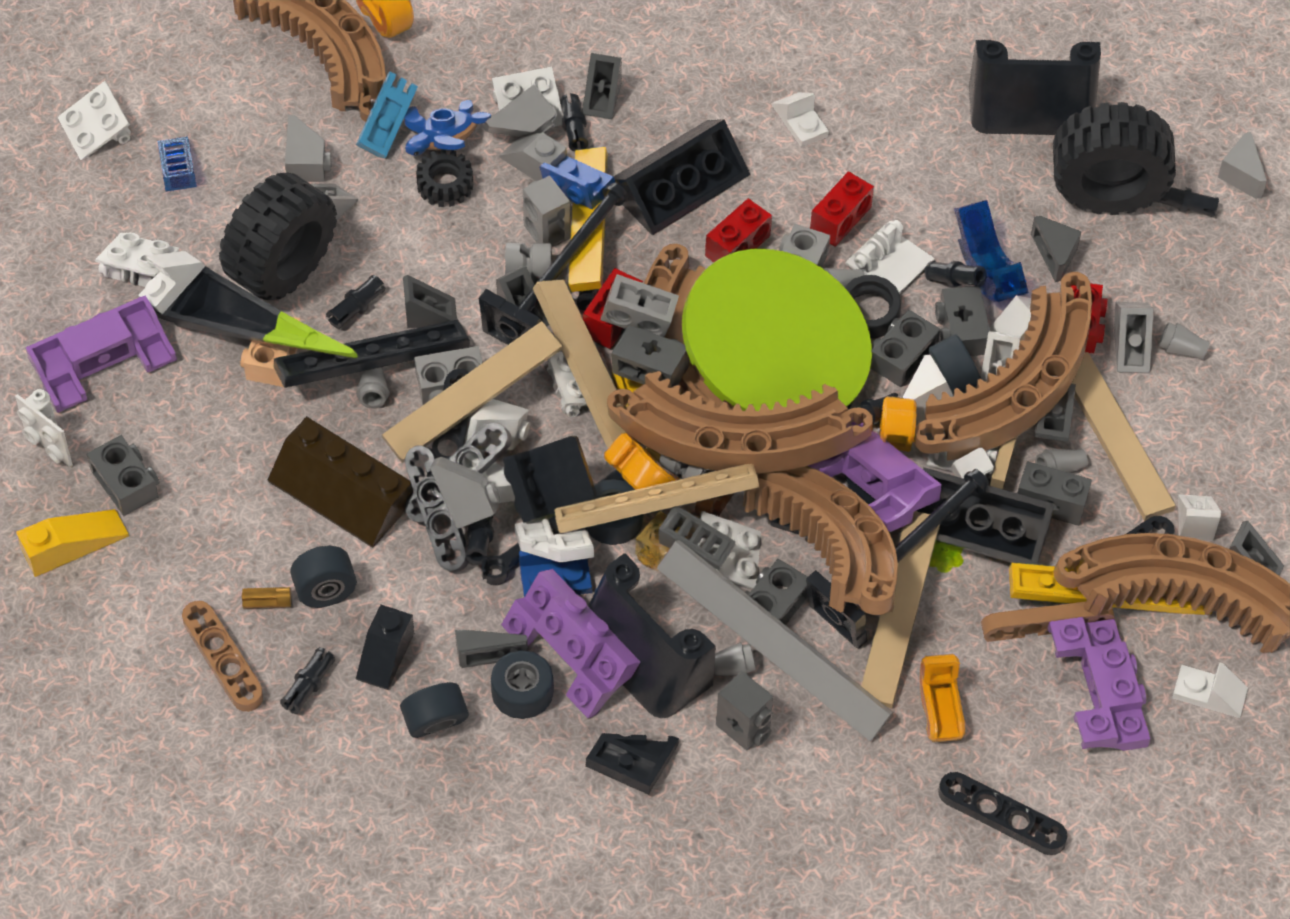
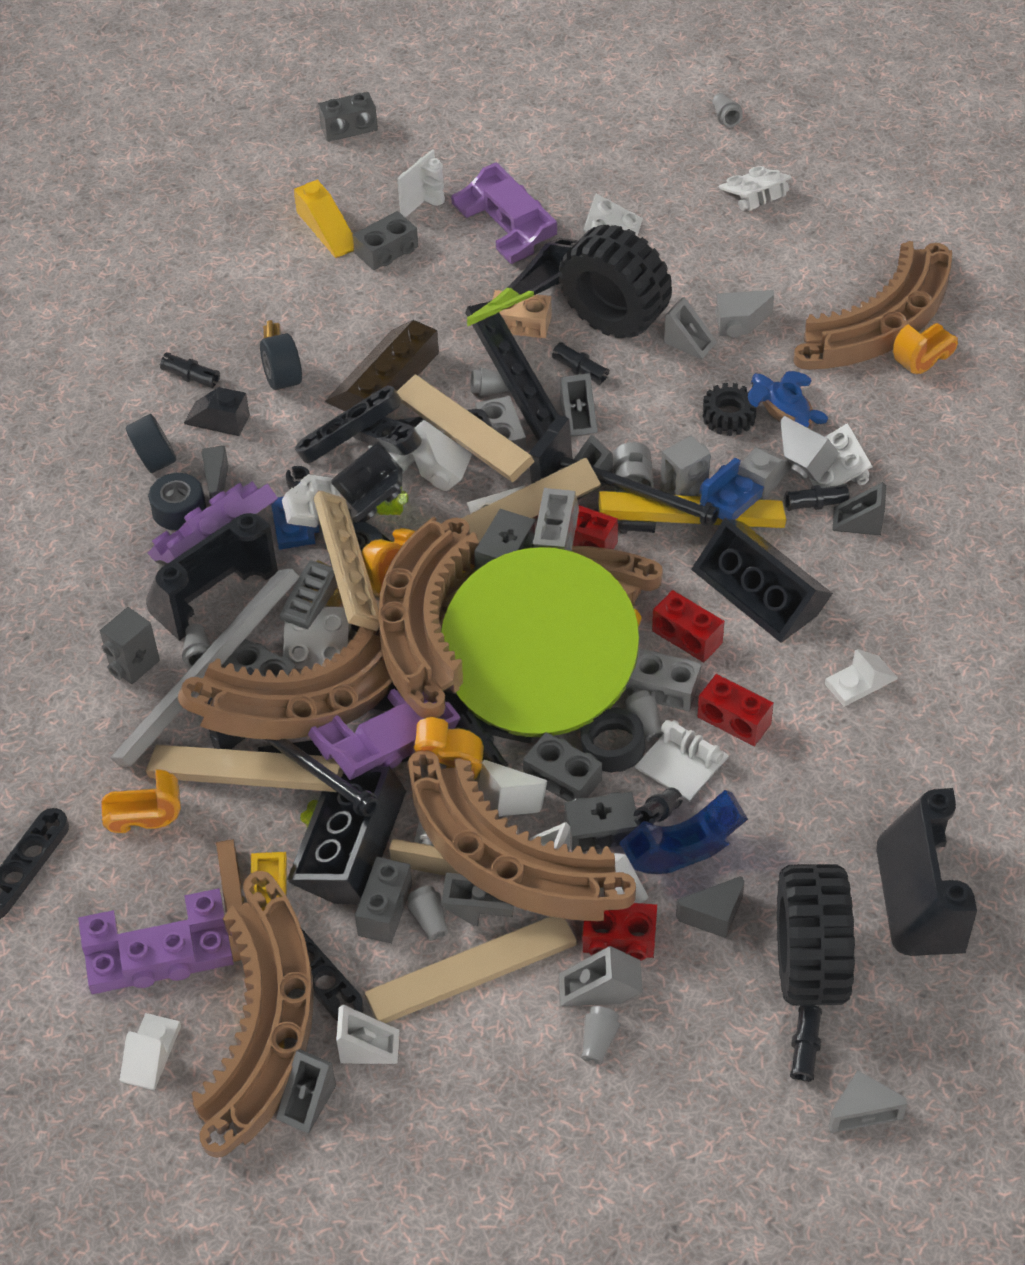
camera: 90 degrees right, 5 degrees down
(174, 275) = (570, 233): white slope -> none
(178, 179) = (706, 243): clear blue slope -> none
(226, 654) = (215, 318): medium nougat beam -> none
(386, 116) = (785, 357): dark azure hinge -> none
(465, 492) = (354, 426): light grey slope -> none
(479, 536) = (326, 460): black pin -> none
(631, 759) = (100, 582): black wing -> none
(955, 363) = (530, 802): black wheel -> none
(974, 460) = (405, 821): white slope -> none

